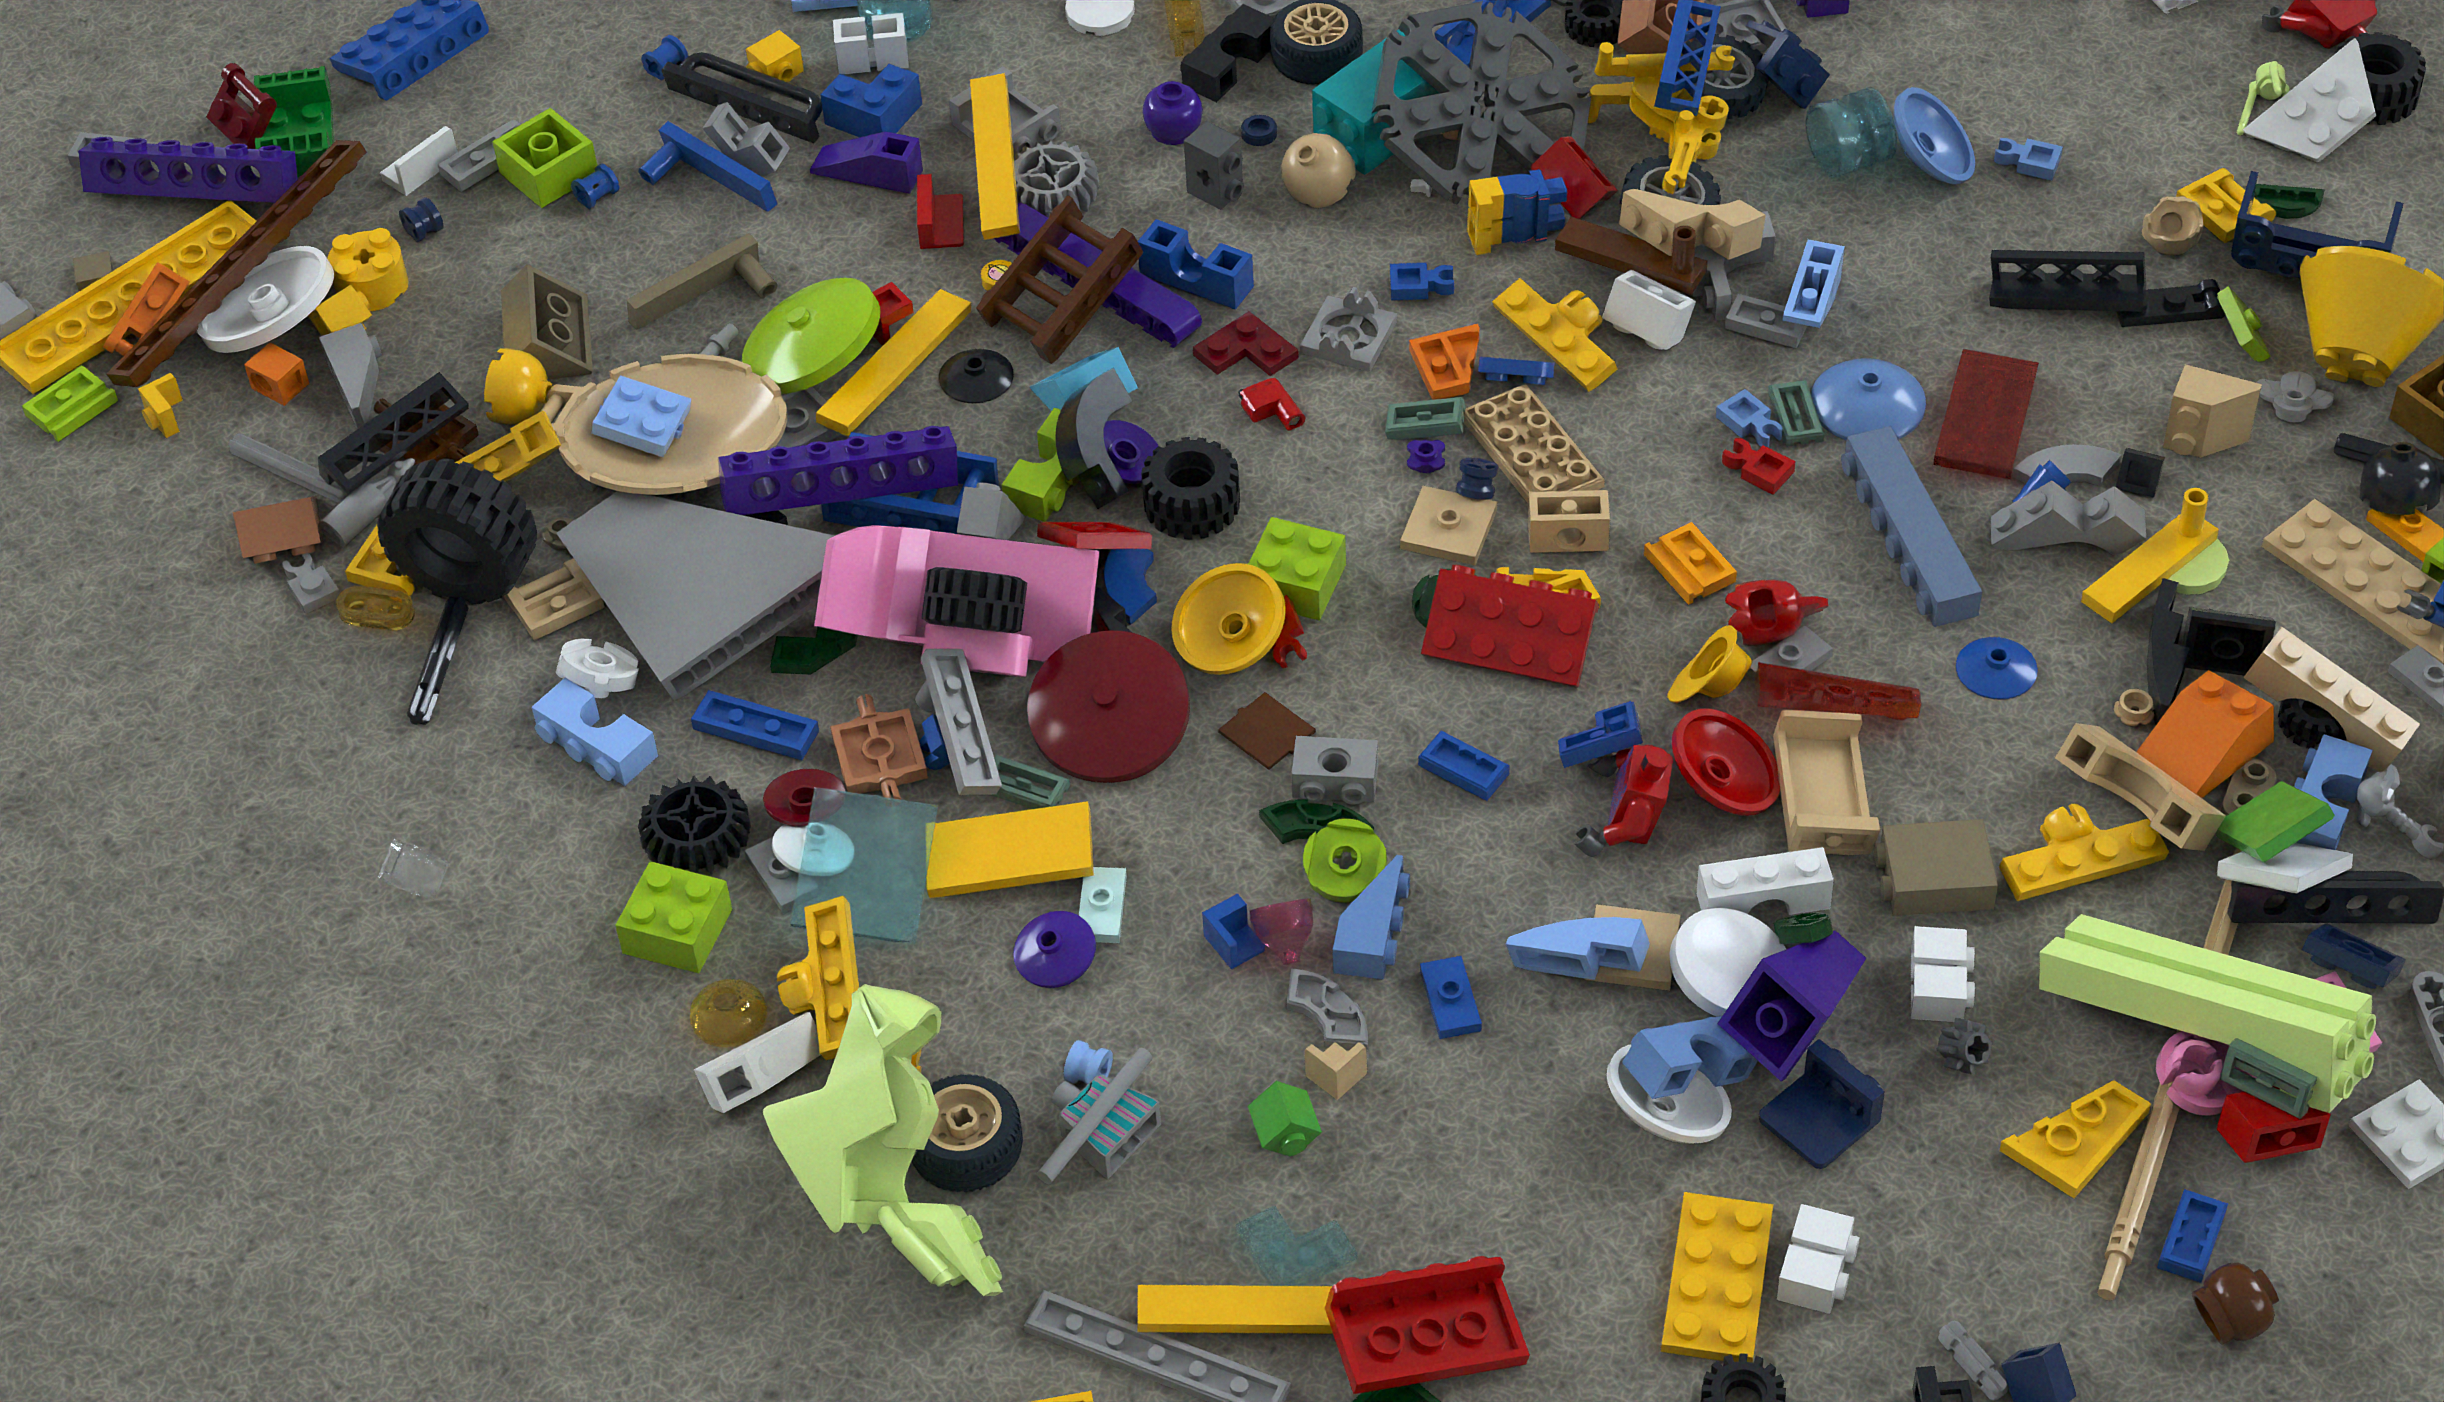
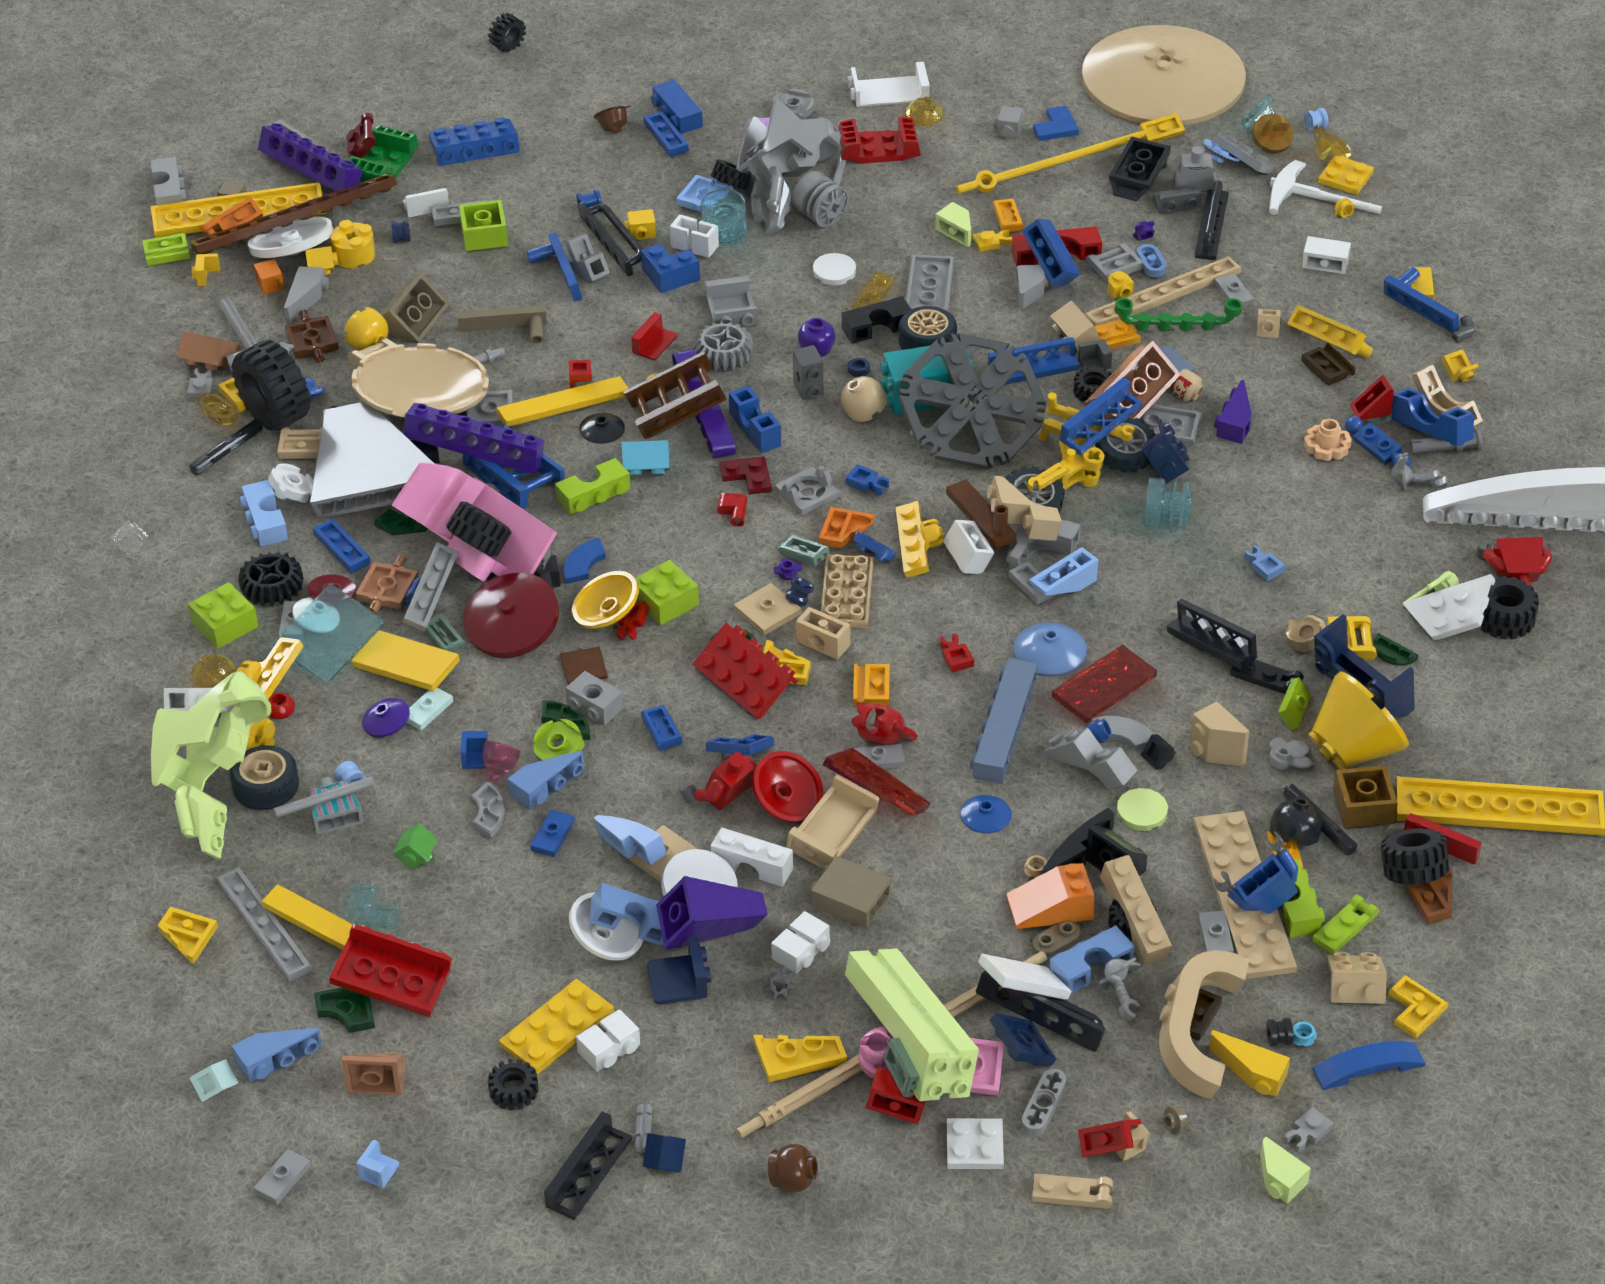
camera: 30 degrees right, 5 degrees down
(390, 426) = (289, 326): black fence -> none
(518, 450) = (328, 363): yellow slope -> none
(584, 190) = (497, 247): blue bush -> none
(641, 416) = (413, 372): light blue plate -> none
(813, 333) = (530, 369): lime dish -> none
(873, 160) = (643, 297): dark purple slope -> none
(988, 513) = (529, 493): light grey slope -> none
(994, 156) = (699, 319): yellow tile -> none
(1081, 437) = (627, 462): black arch -> none
(1094, 535) = (572, 527): red tile -> none
(1128, 448) = (638, 490): dark purple dish -> none
(1196, 508) = (649, 528): black tyre -> none
(1336, 1068) = (464, 838): tan panel -> none
(1514, 209) = (943, 462): blue hips -> none
(1581, 176) = (995, 458): red panel -> none
(1714, 669) = (831, 742): yellow piece -> none
(1747, 415) = (973, 625): medium blue plate -> none
(1800, 435) = (998, 649): sand green tile -> none
(1803, 928) = (744, 882): dark green tile -> none
(1933, 137) = (1211, 525): medium blue dish -> none
(2080, 853) = (932, 922): yellow plate -> none
(2153, 560) = (1117, 798): yellow piece -> none
(2167, 803) = (988, 882): tan arch -> none
(2192, 1235) = (809, 1128): blue plate -> none
(2274, 821) = (1034, 950): bright green tile -> none

